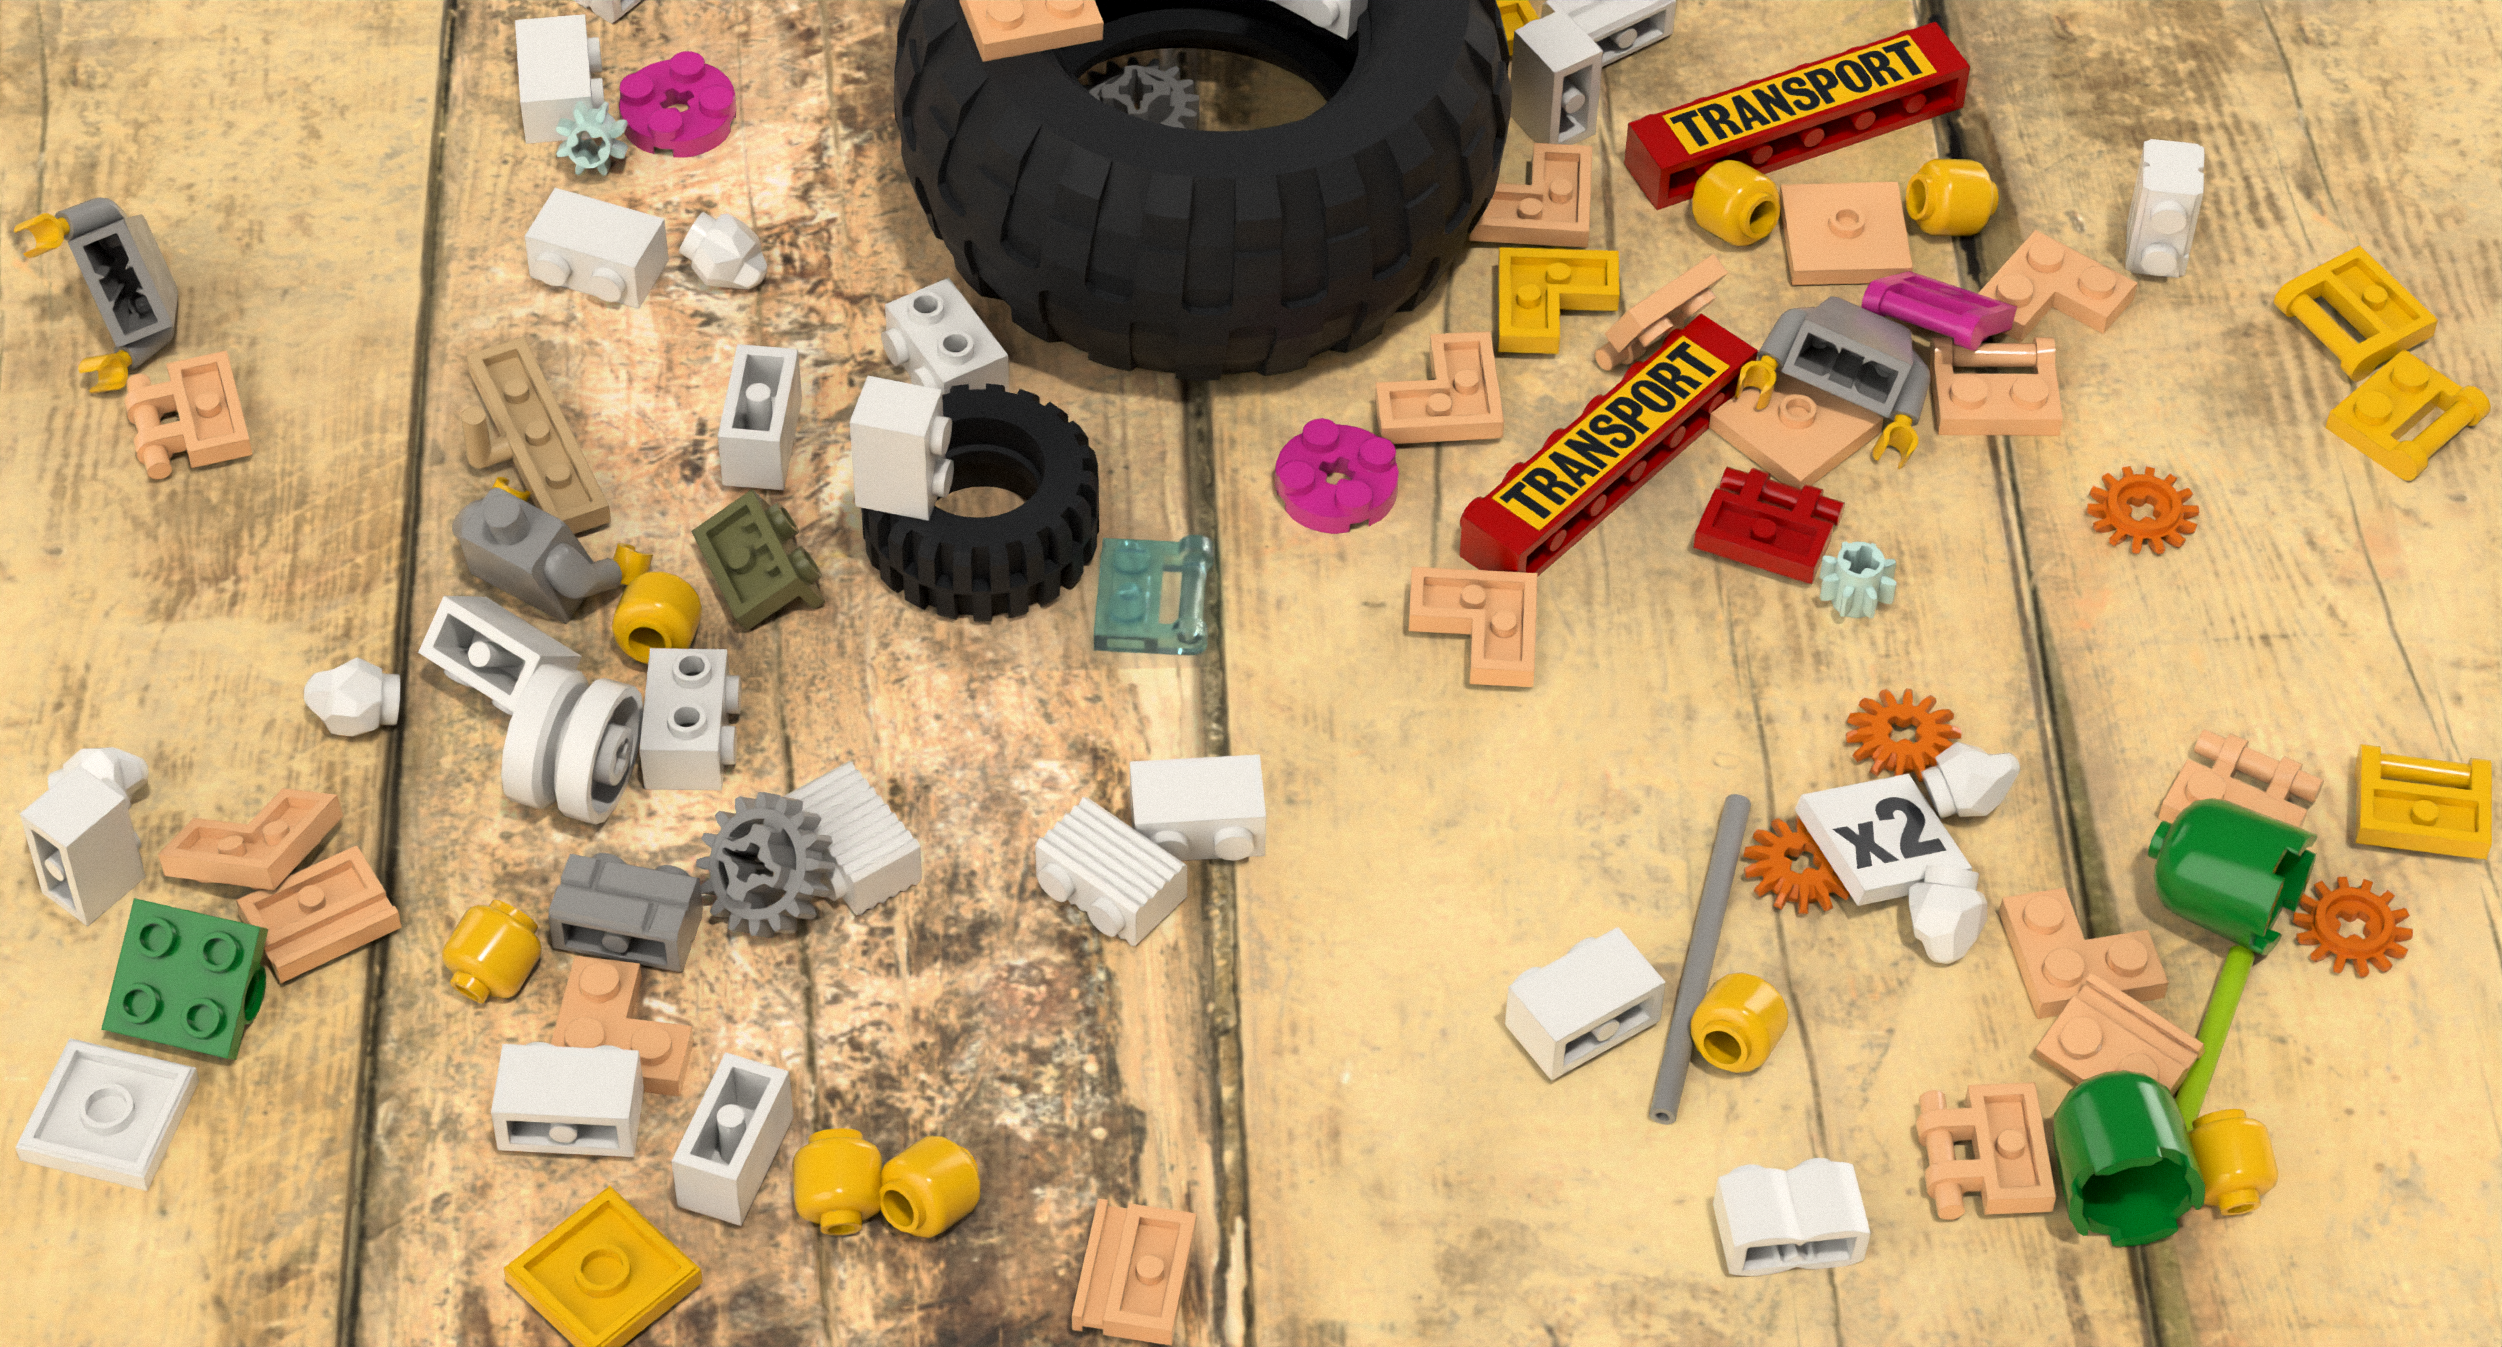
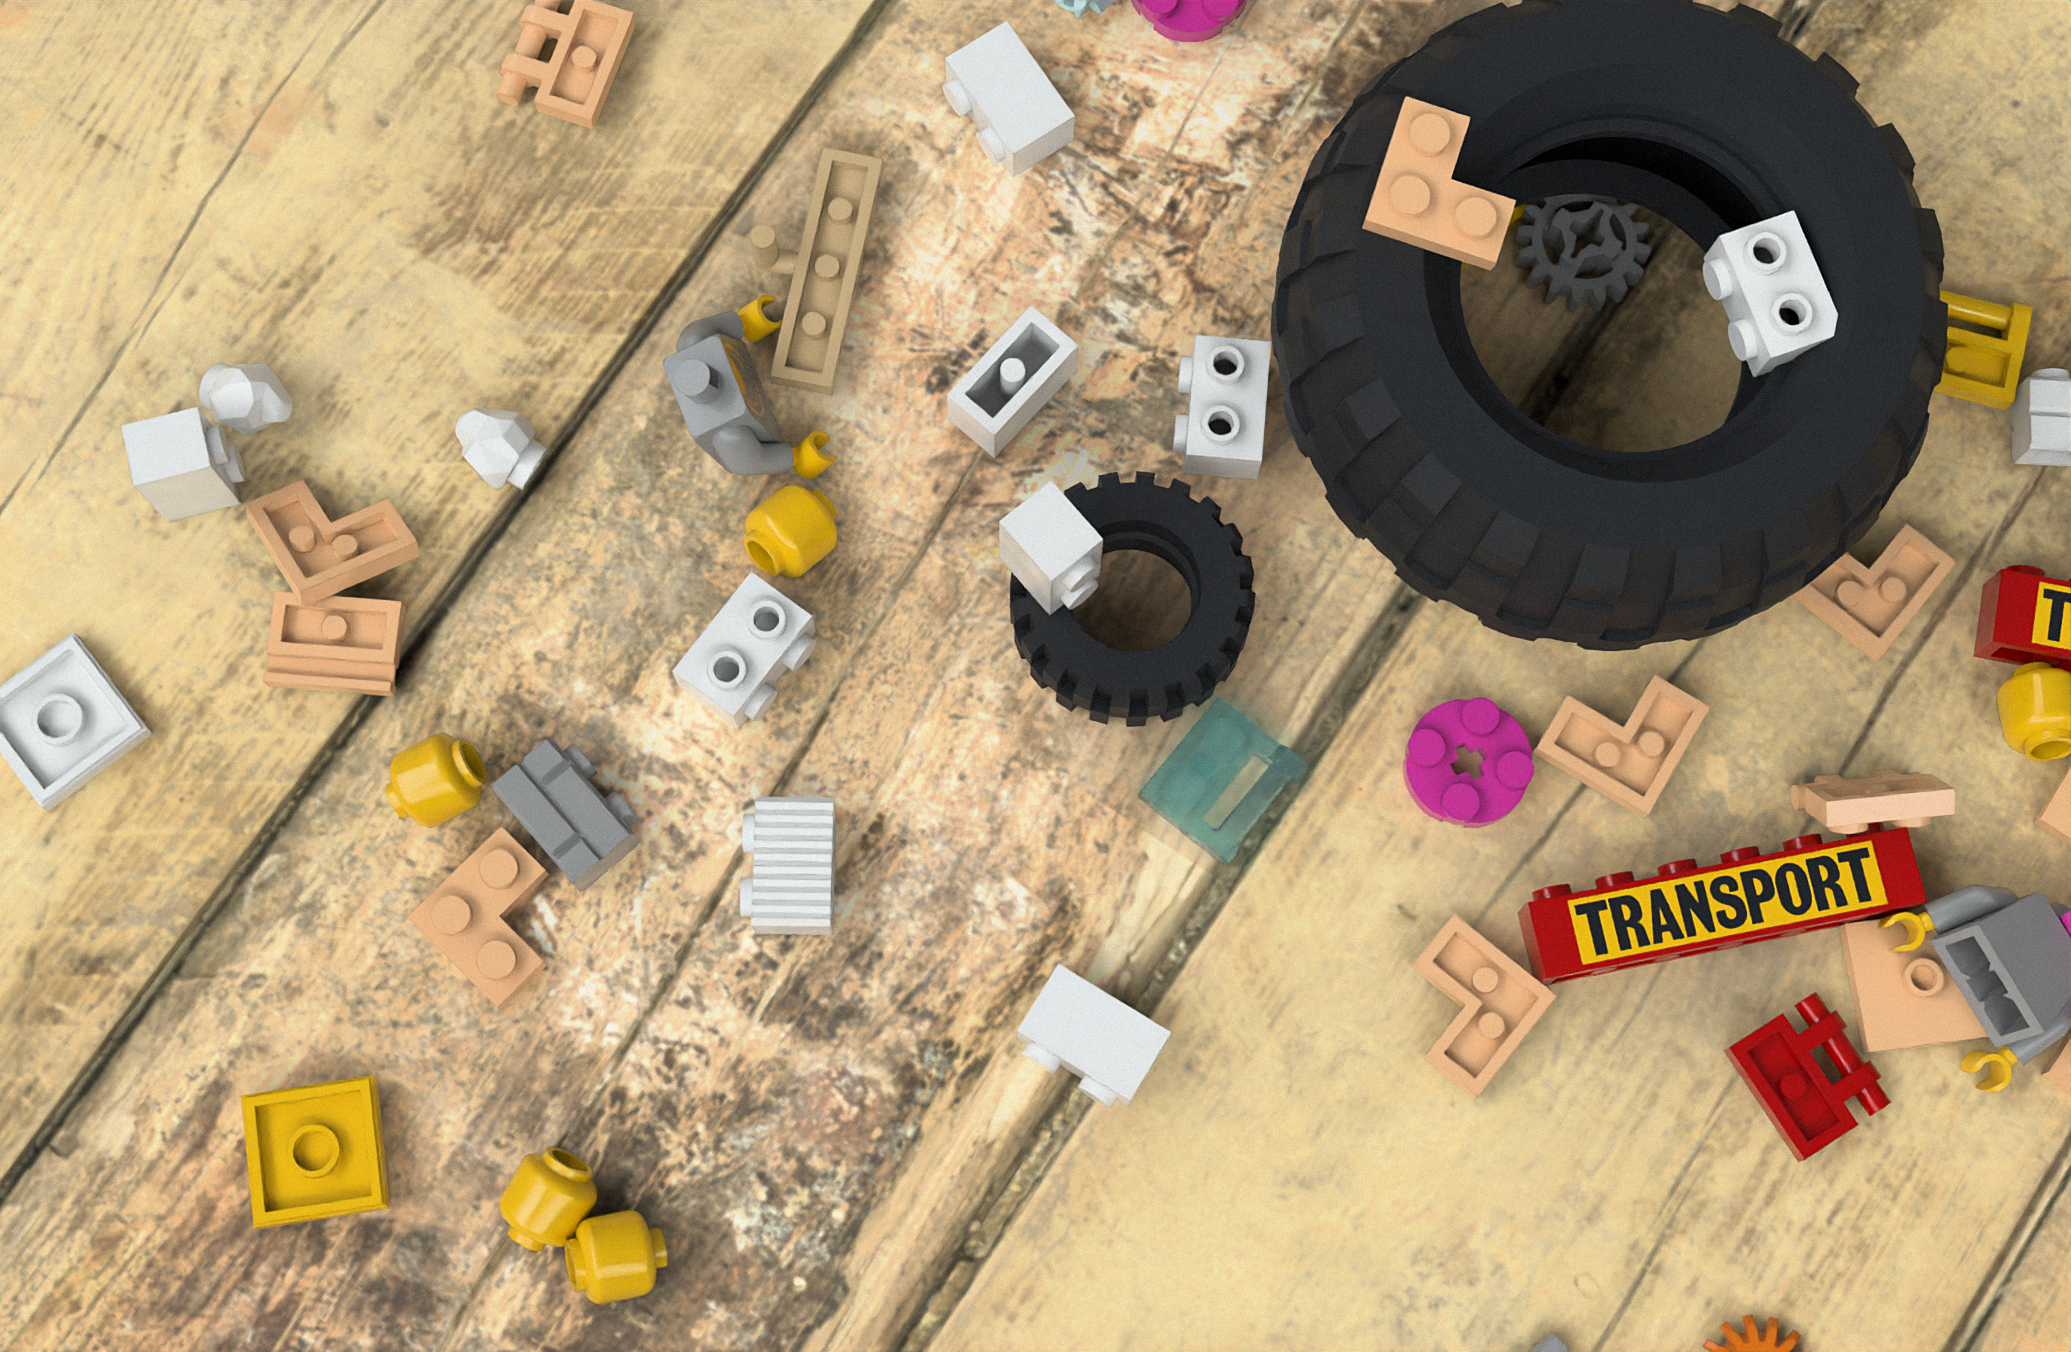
camera: 35 degrees right, 25 degrees up
(187, 979) = (185, 646): green plate -> none
(490, 648) = (634, 488): white brick -> none
(568, 1099) = (391, 972): white brick -> none
(572, 743) = (620, 628): white wheel -> none
(724, 252) = (1113, 176): white rock -> none
(732, 1139) = (486, 1107): white brick -> none
(747, 882) = (696, 855): light grey gear -> none
(757, 559) = (917, 524): olive bracket -> none
(1109, 872) = (975, 1047): white brick -> none
(1543, 281) = (1794, 678): yellow plate -> none
(1555, 80) = (1970, 476): white brick -> none
(1857, 579) = (1851, 1206): light aqua gear -> none

